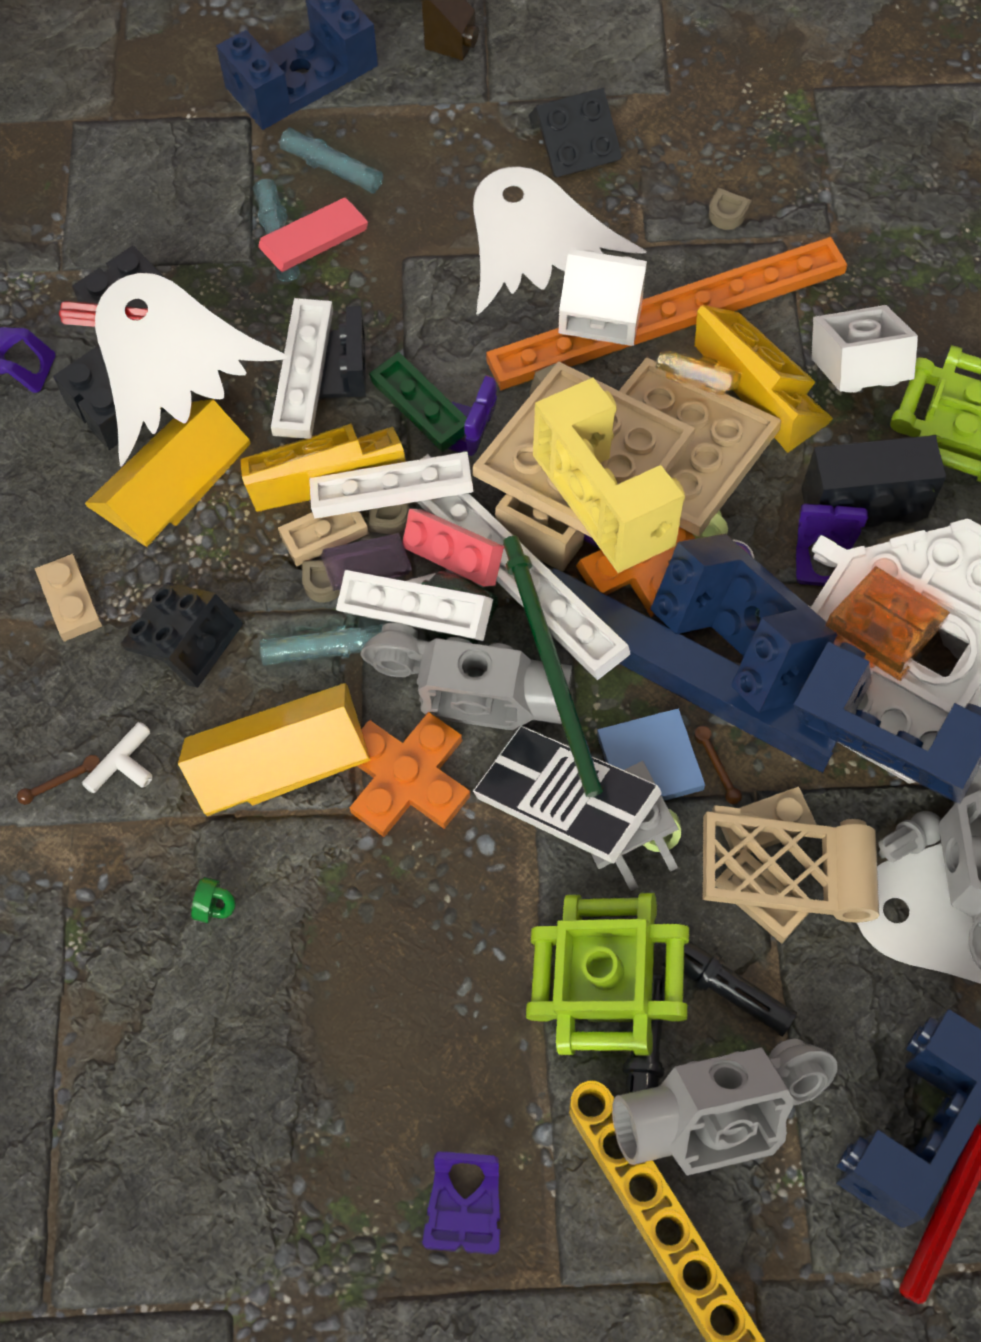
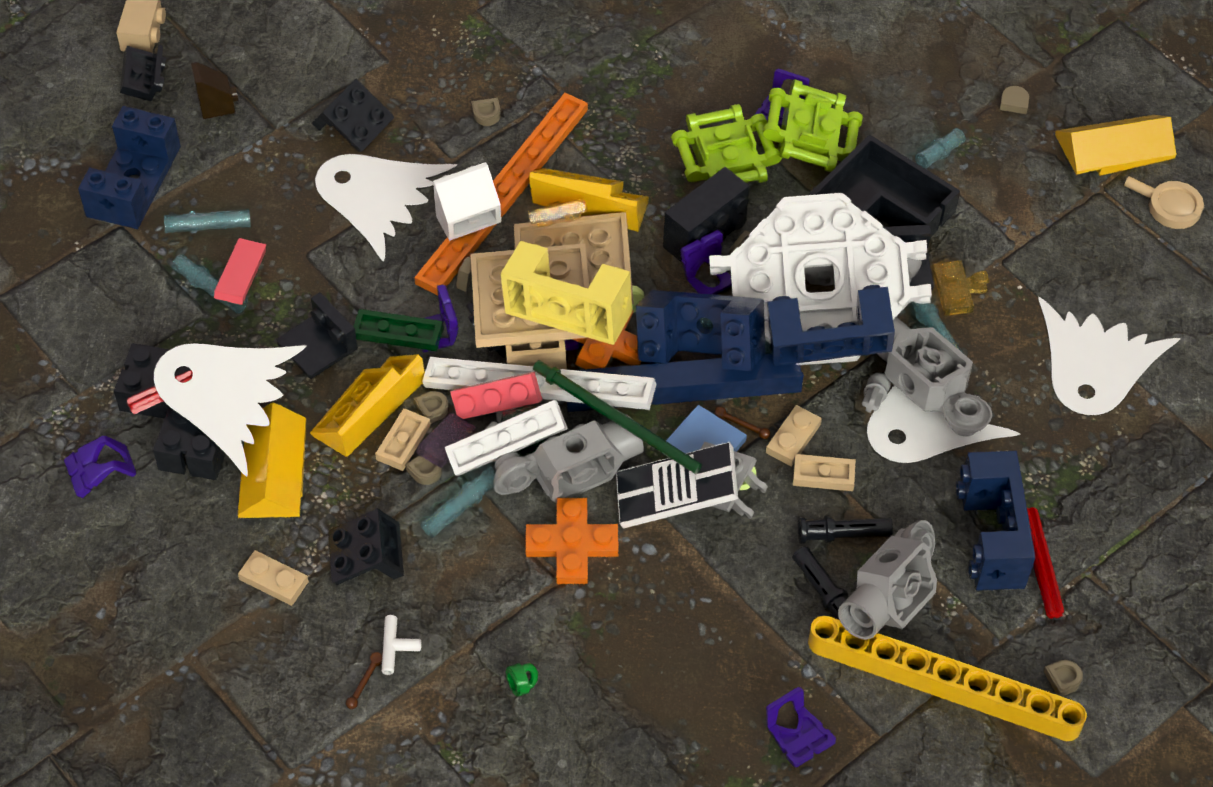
camera: 40 degrees left, 10 degrees down
(274, 751) = (487, 573): yellow slope -> none
(303, 370) = (313, 359): white plate -> none
(390, 485) = (429, 384): white plate -> none
(606, 973) = (777, 562): lime brick -> none
(847, 859) = (855, 429): tan piece -> none
(864, 348) = (640, 144): white brick -> none
(887, 621) = (784, 275): clear orange plate -> none

